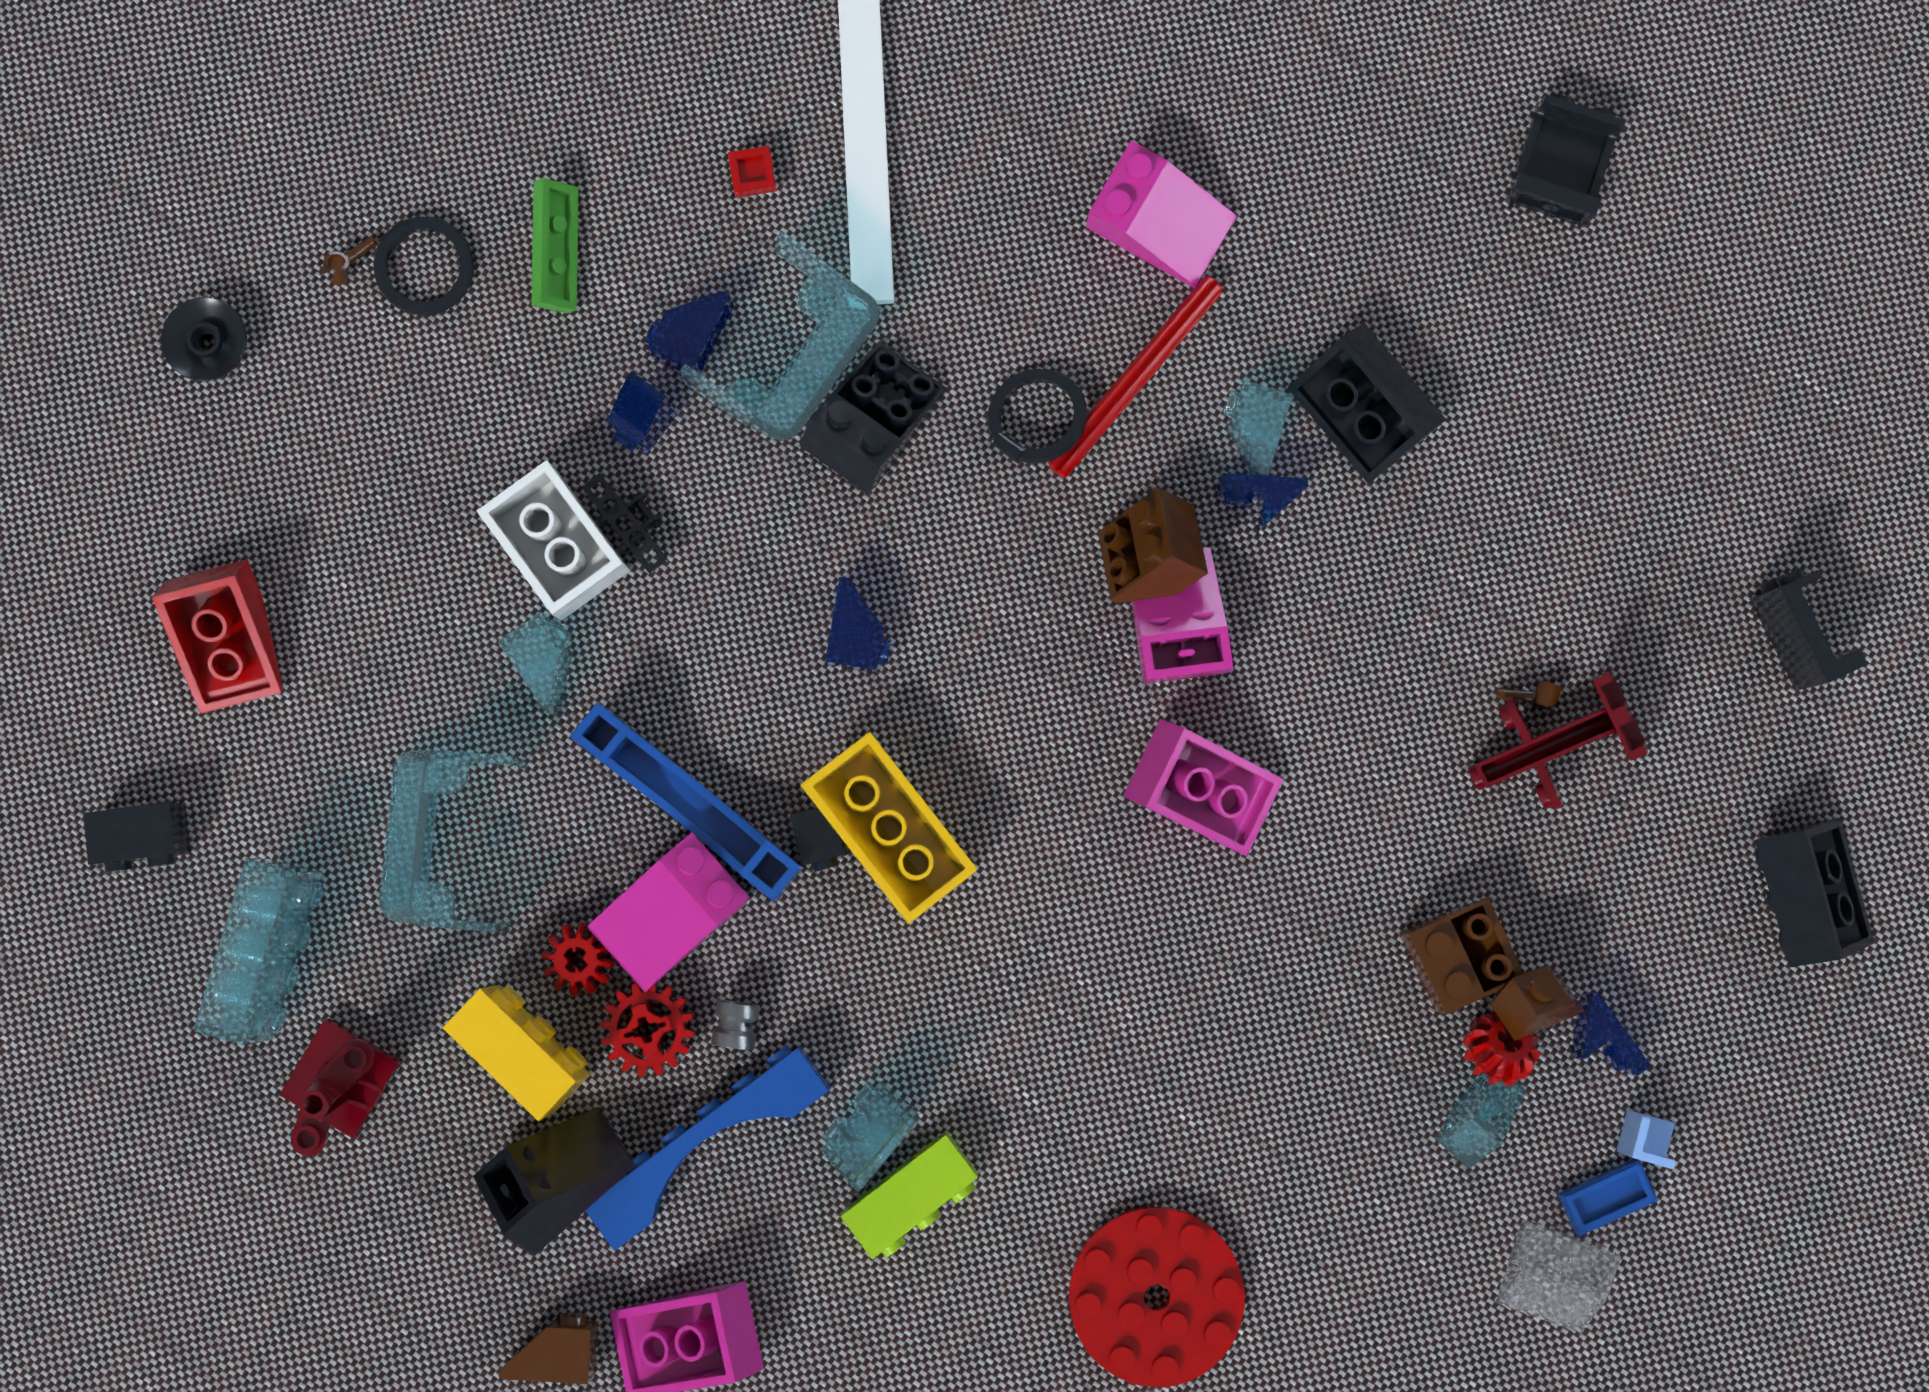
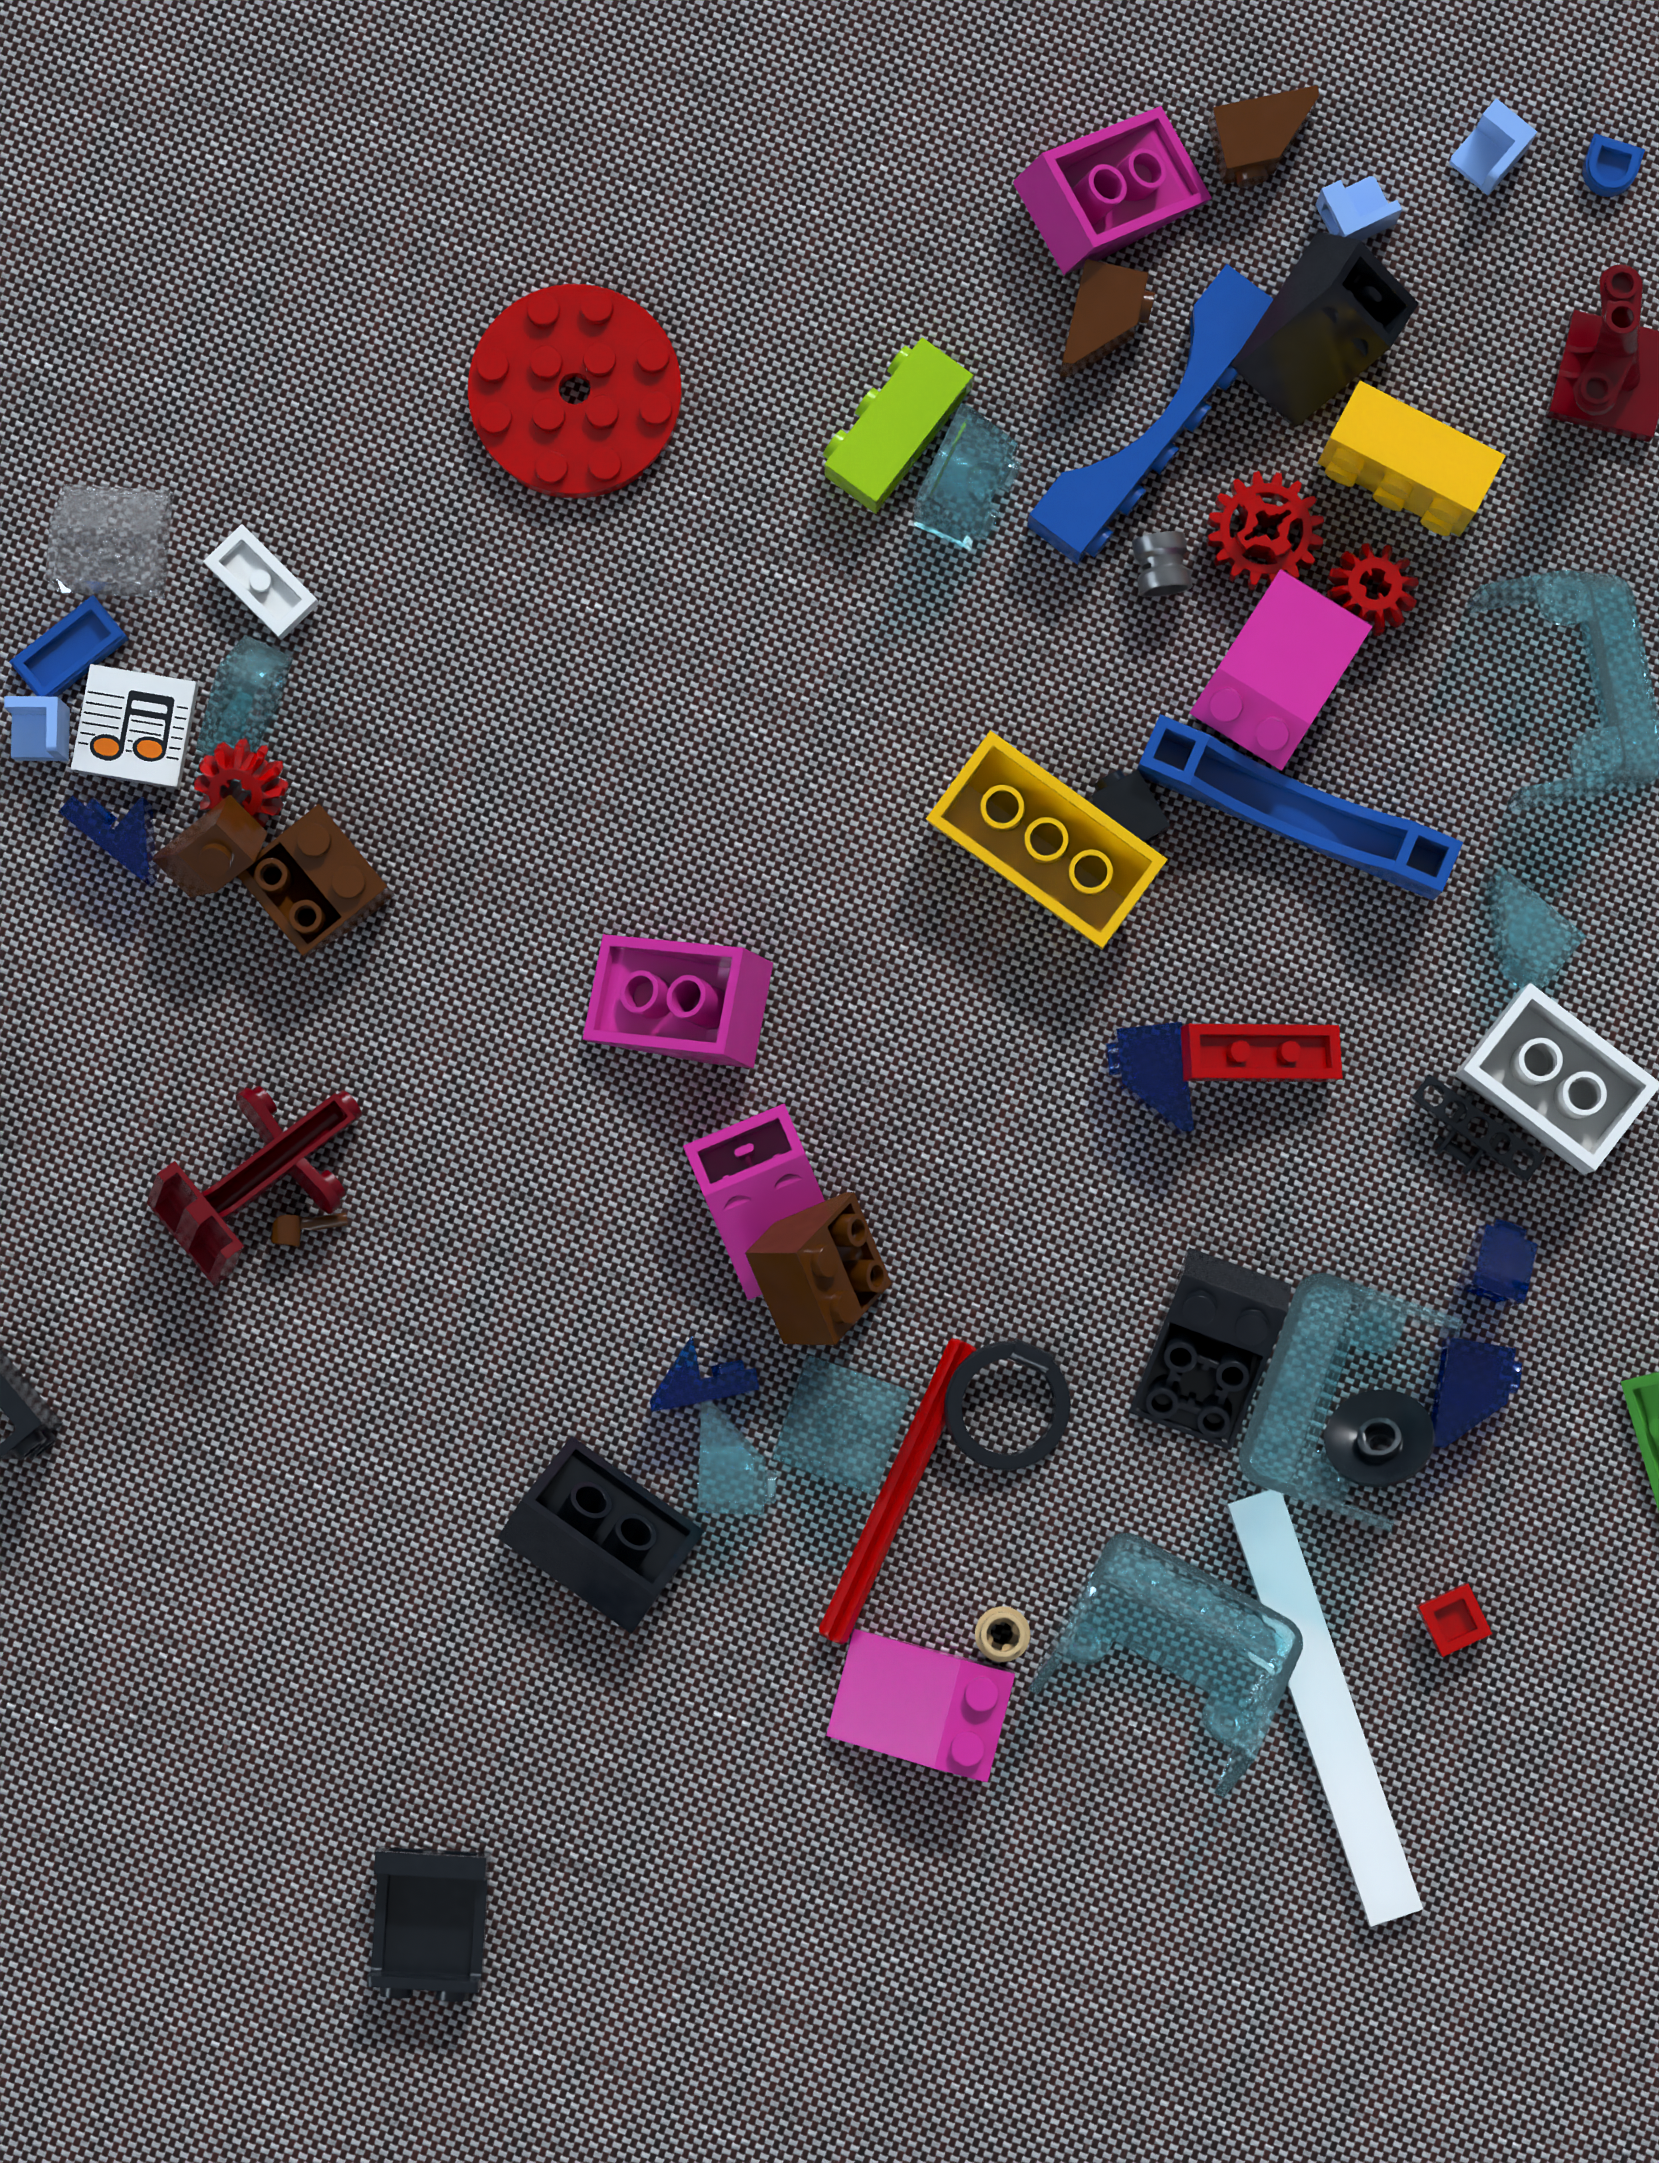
camera: 165 degrees right, 0 degrees up
(288, 1249) = (1610, 165): none -> blue tile
(375, 1289) = (1493, 147): none -> light blue panel
(499, 1268) = (1357, 209): none -> light blue panel
(721, 1239) = (1105, 313): none -> reddish brown slope
(763, 333) = (1378, 1419): none -> black dish
(771, 622) = (1261, 1052): none -> red plate
(943, 215) = (1190, 1628): none -> clear light blue windscreen
(1089, 237) = (1014, 1645): none -> tan cone
(1164, 433) = (841, 1425): none -> clear light blue slope
(1444, 1209) = (261, 582): none -> white plate
(1570, 1120) = (134, 726): none -> white tile

